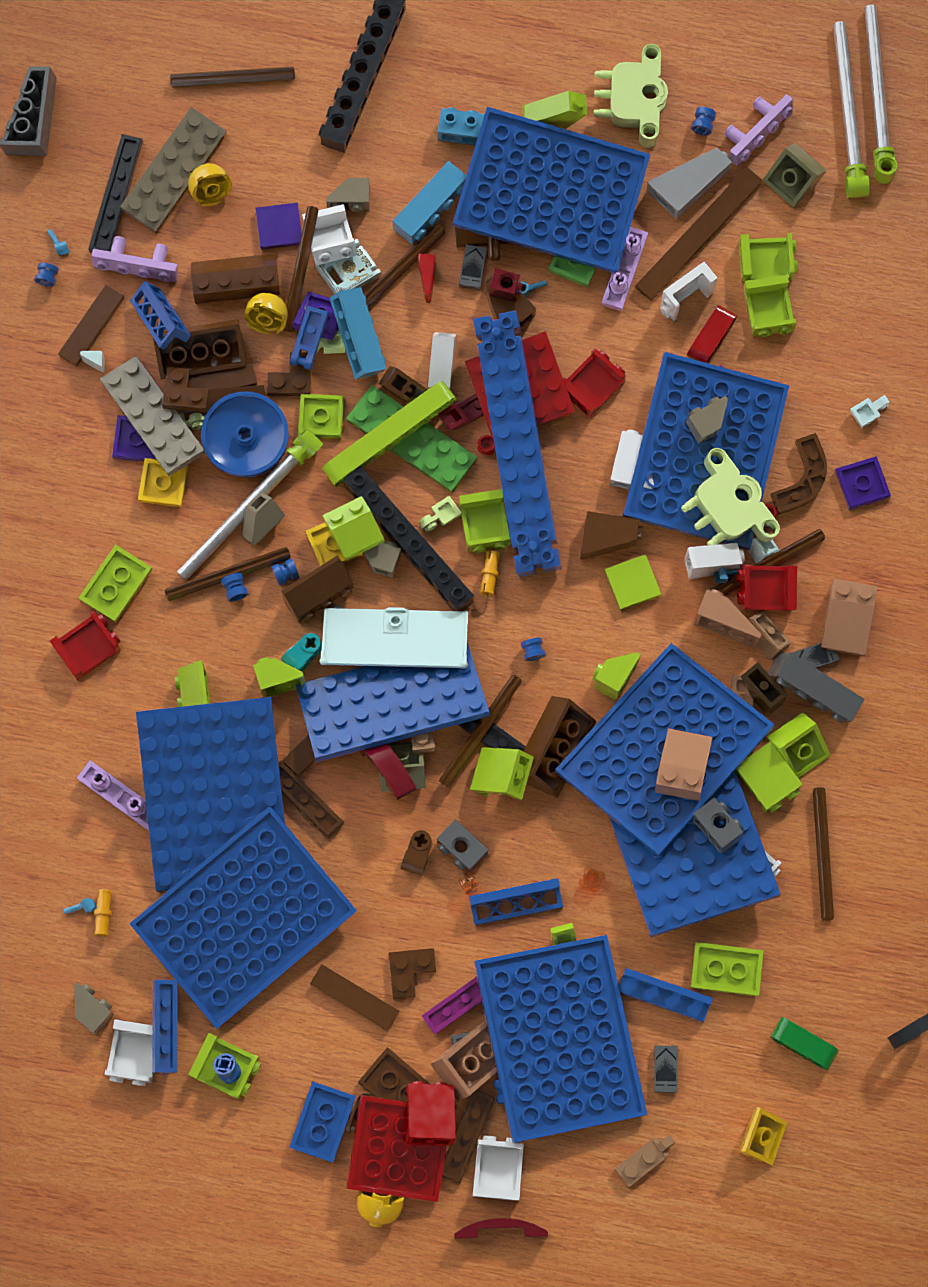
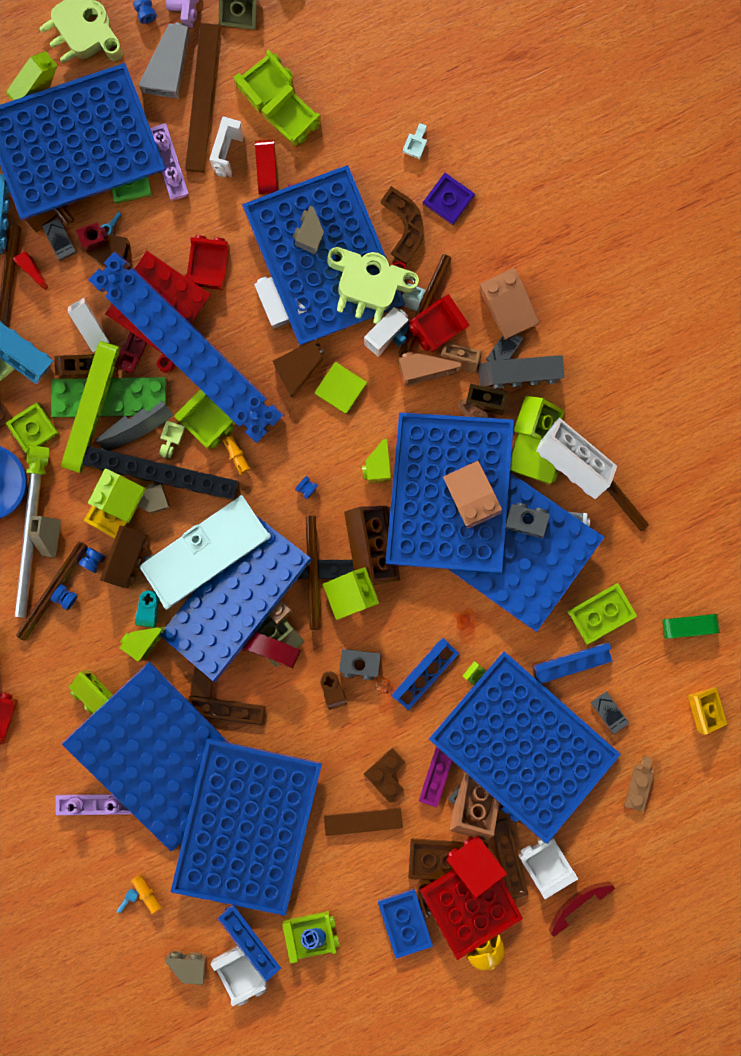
camera: 35 degrees left, 10 degrees up
(408, 480) = (128, 430): none -> dark grey slope
(808, 803) = (577, 459): none -> white slope

